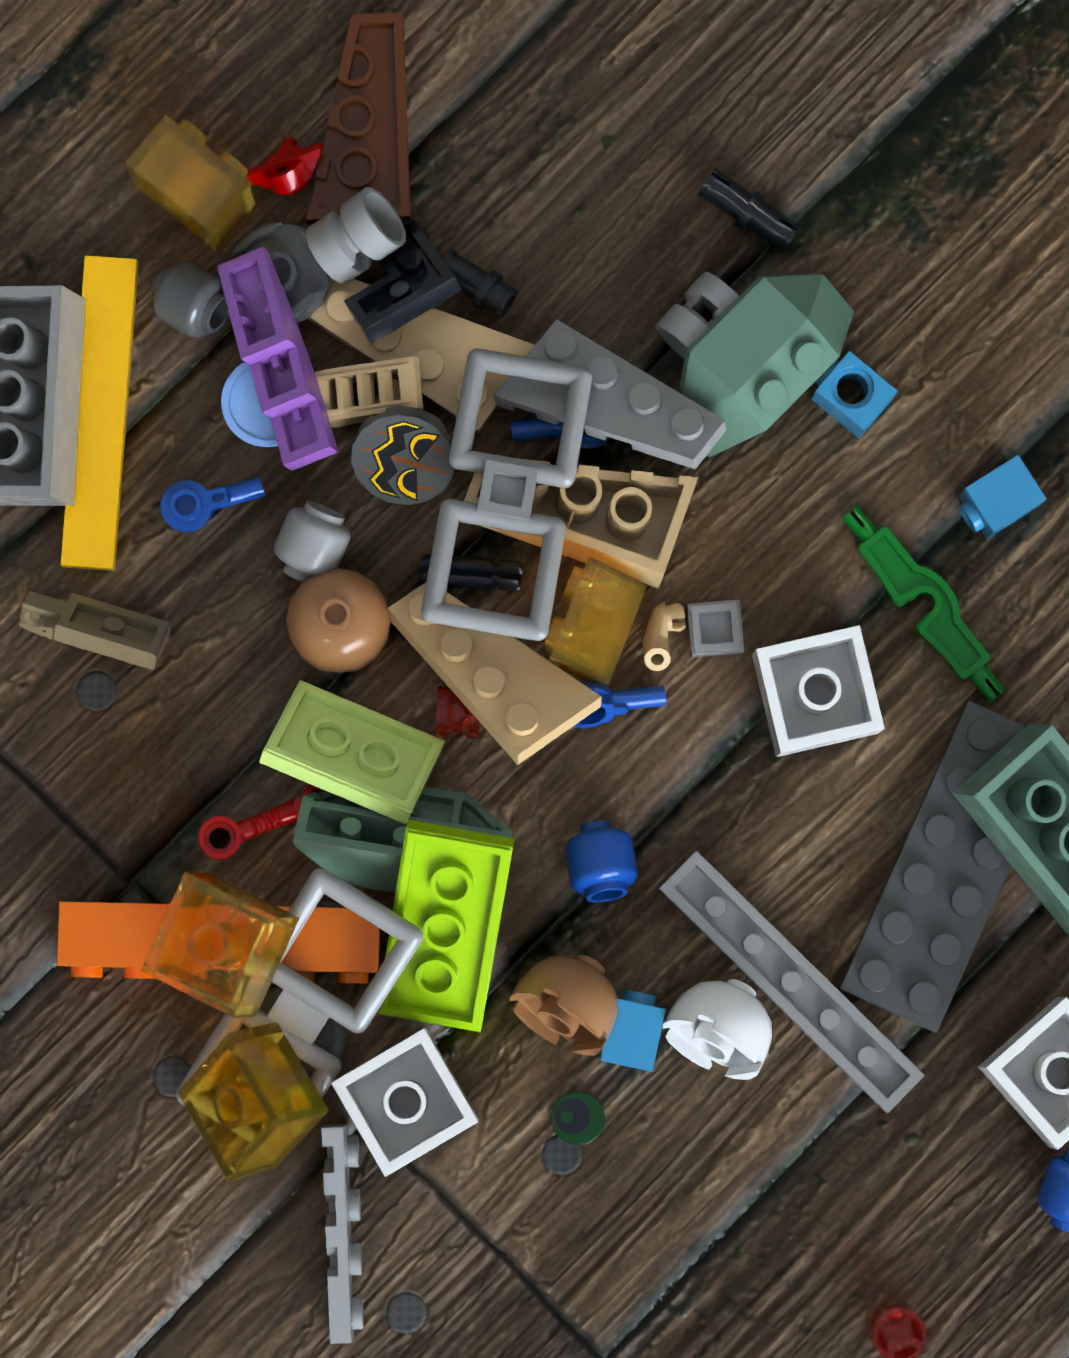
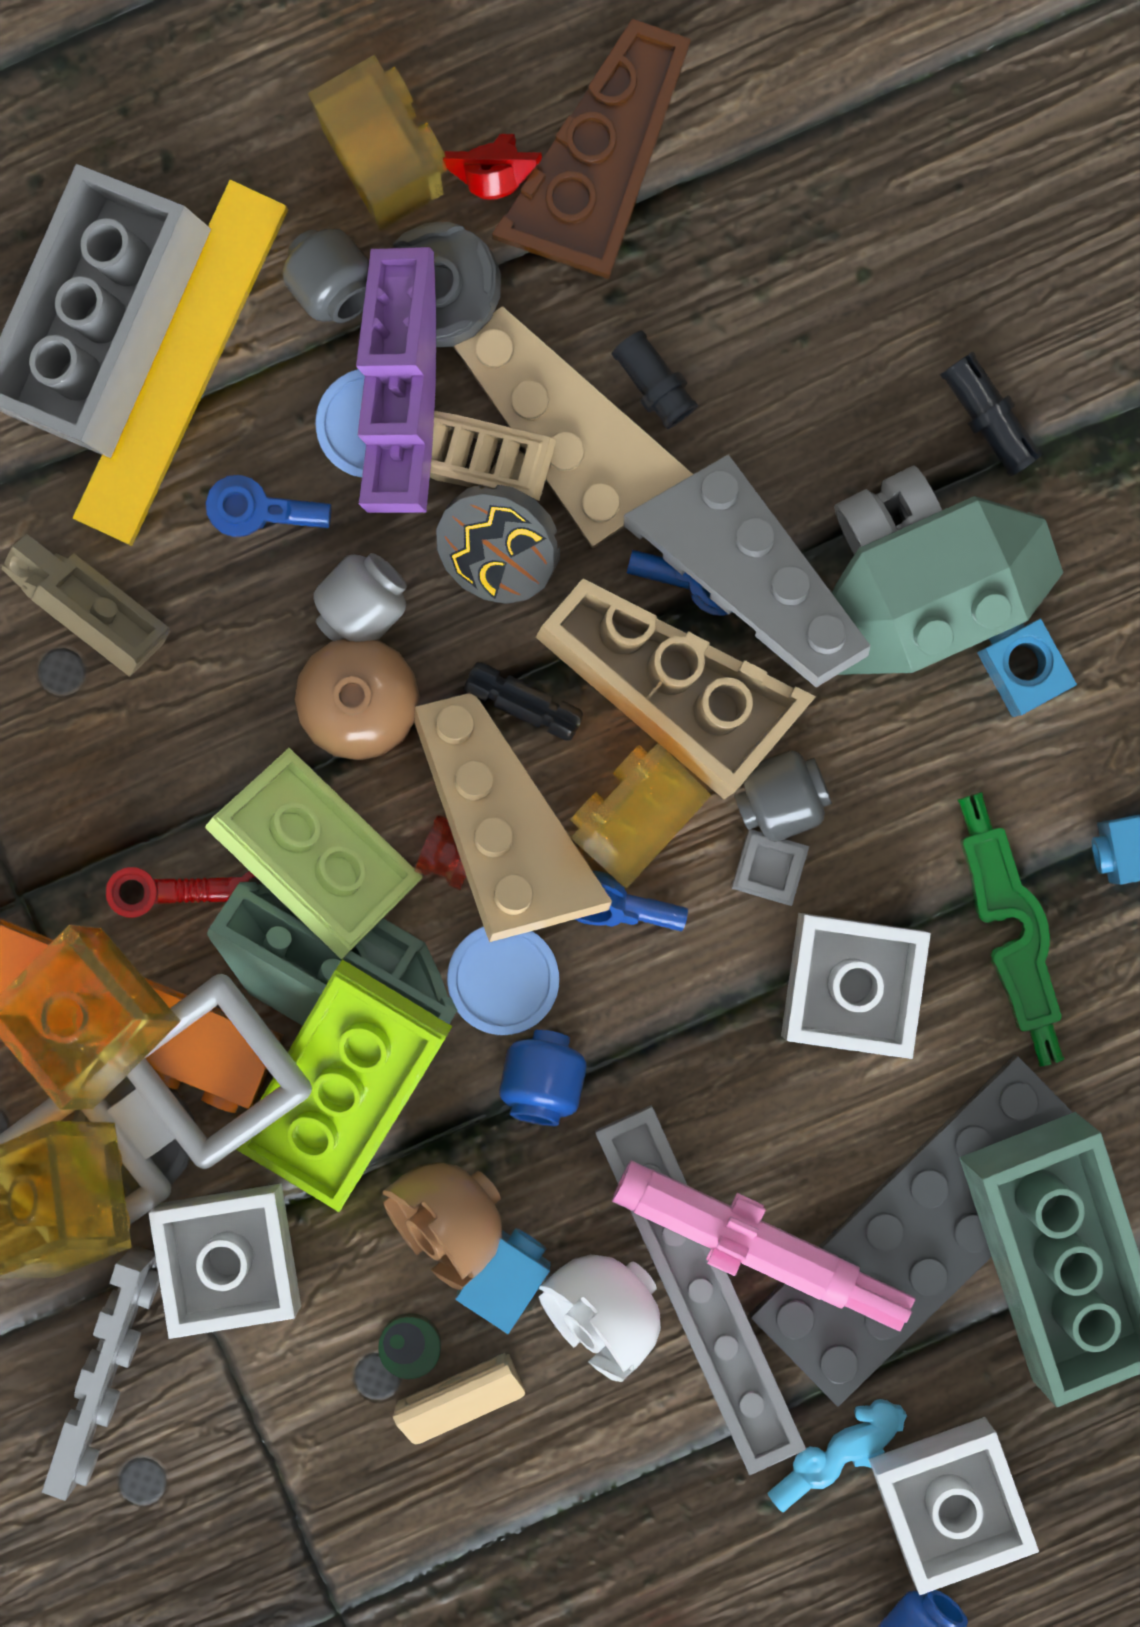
camera: 25 degrees right, 5 degrees up
(362, 232) = (547, 274): light grey wheel -> none
(413, 285) = (581, 358): black plate -> none
(507, 495) = (593, 636): light grey bar -> none
(540, 796) = (503, 982): none -> light blue piece
(635, 1146) = (458, 1399): none -> tan slope
(655, 640) = (699, 854): tan arm -> none
(704, 566) = (784, 796): none -> dark grey head
(805, 923) = (740, 1236): none -> bright pink piece
(965, 1057) = (855, 1443): none -> medium azure animal

